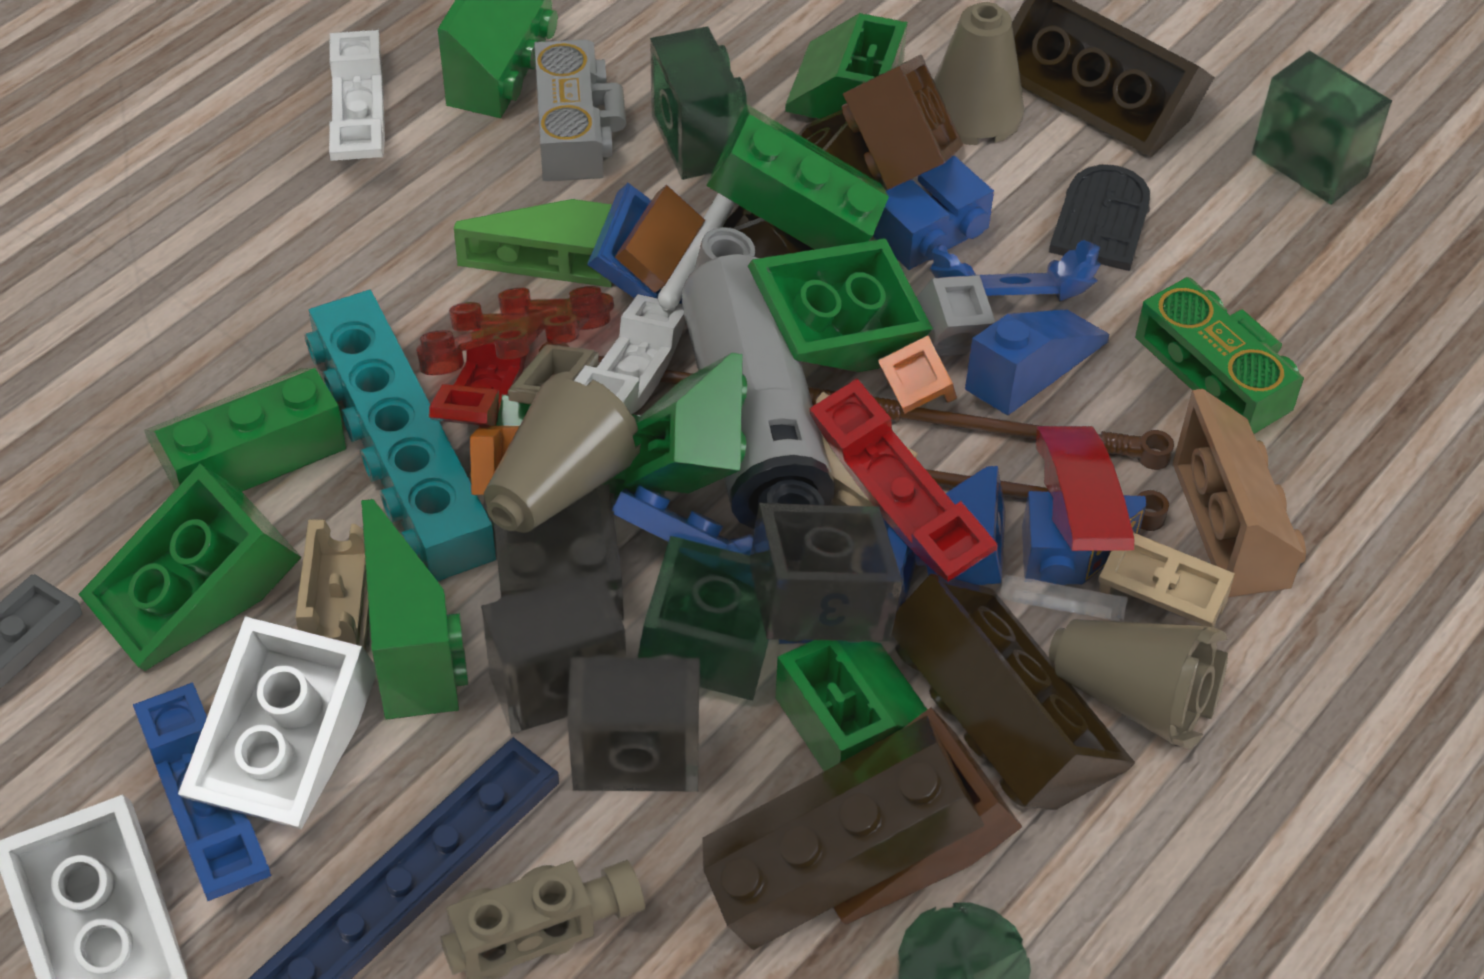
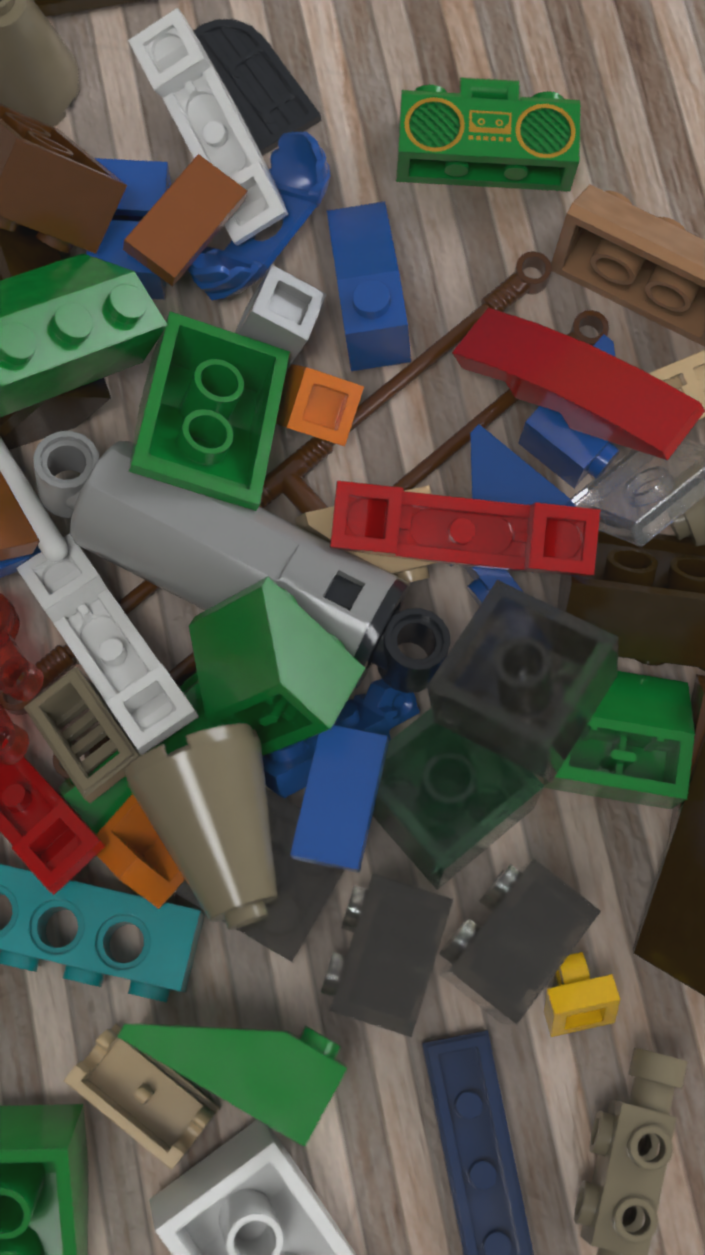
camera: 55 degrees left, 25 degrees up
(630, 811) = (578, 1000): none -> yellow tile
(640, 531) = (340, 798): none -> blue tile
(962, 219) = (184, 220): none -> dark orange tile
(1055, 205) = (208, 118): none -> white slope

